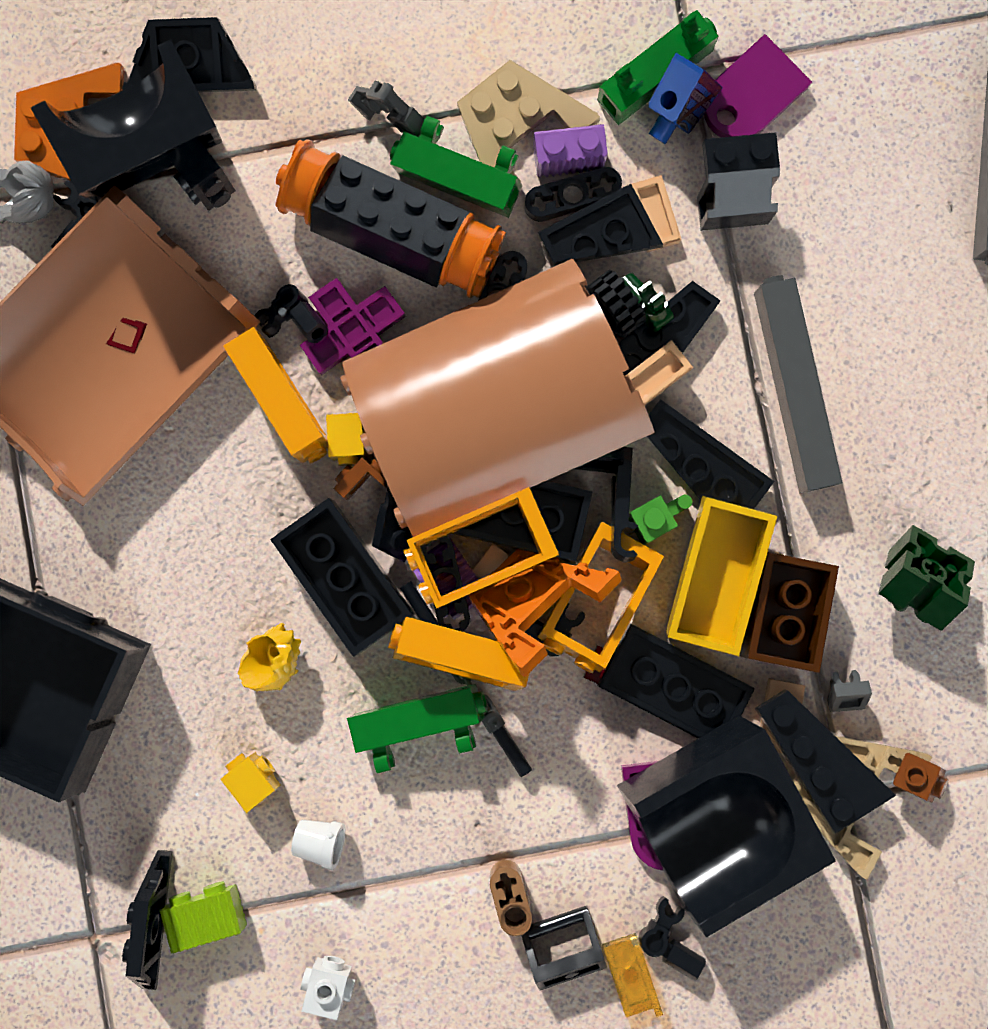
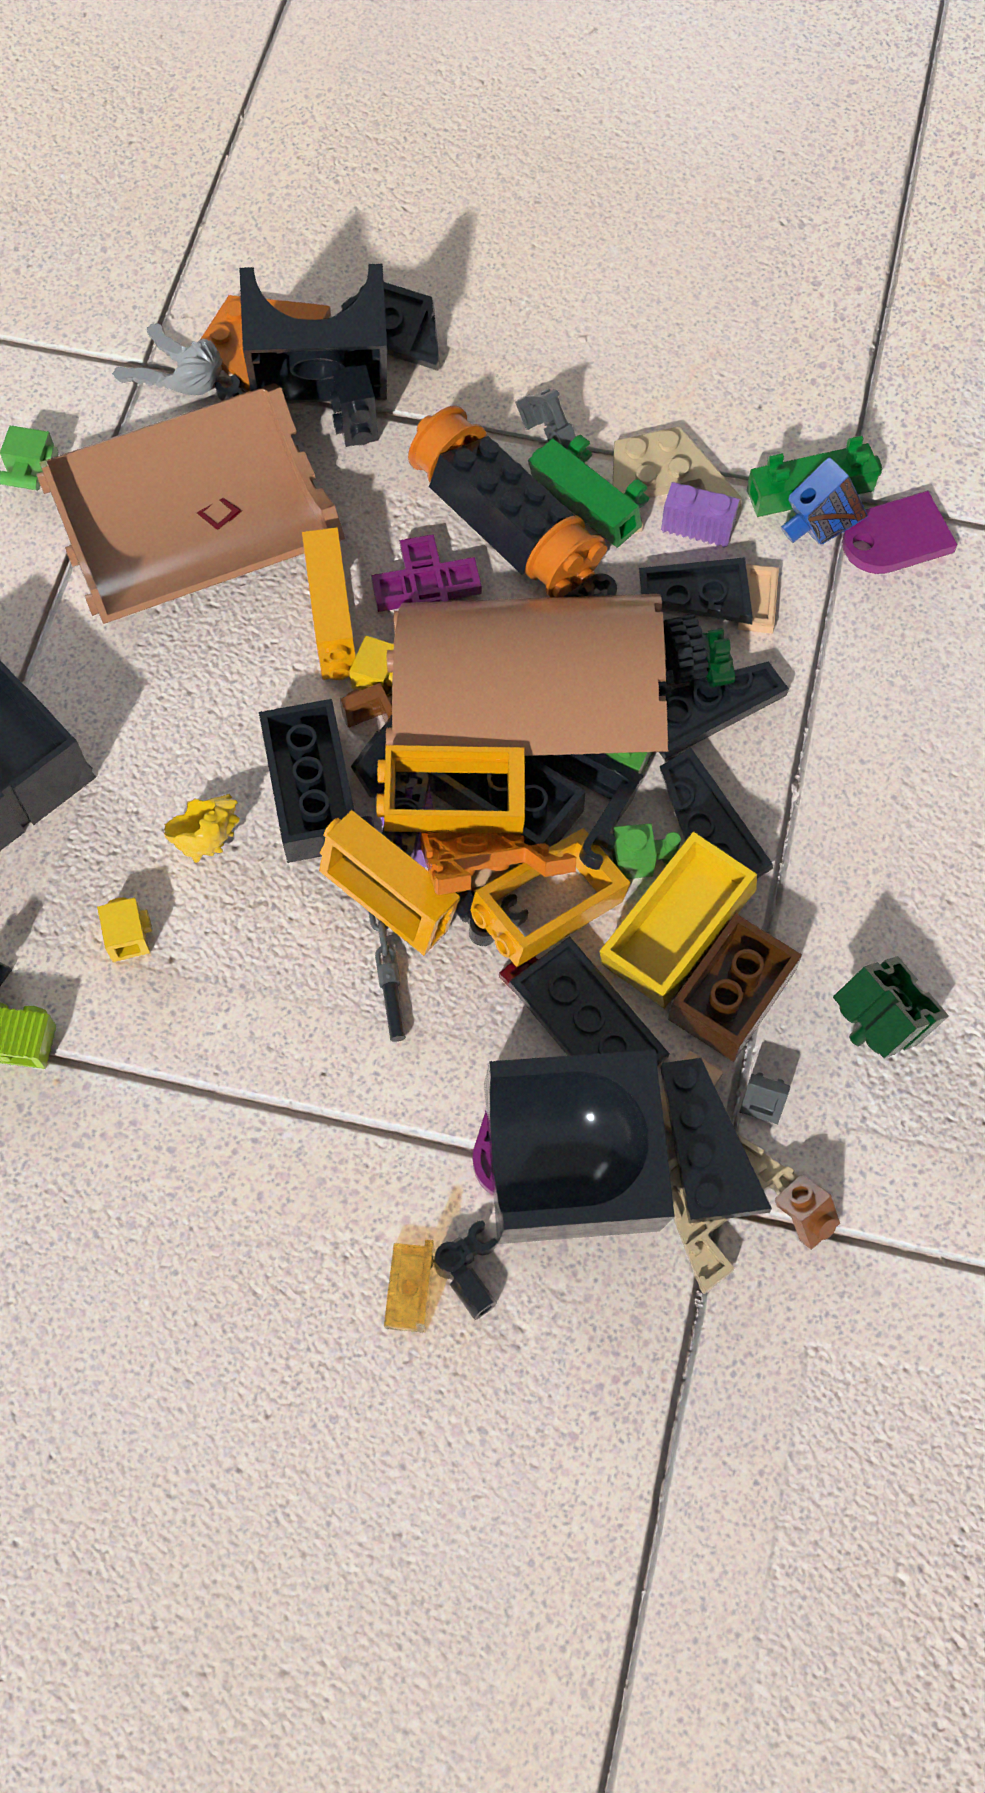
camera: 20 degrees right, 20 degrees down
(294, 305) = (377, 542): black bar -> none
(319, 842) = (160, 1013): white piece -> none
(327, 987) = (94, 1151): white brick -> none
(416, 719) = (314, 934): green brick -> none
(517, 899) = (314, 1150): medium nougat beam -> none
(546, 193) = (676, 541): black beam -> none
(570, 966) = (351, 1243): black tile -> none
(659, 372) = (699, 724): light nougat tile -> none
(739, 181) = (846, 591): black piece -> none
(797, 384) = (832, 793): dark grey brick -> none

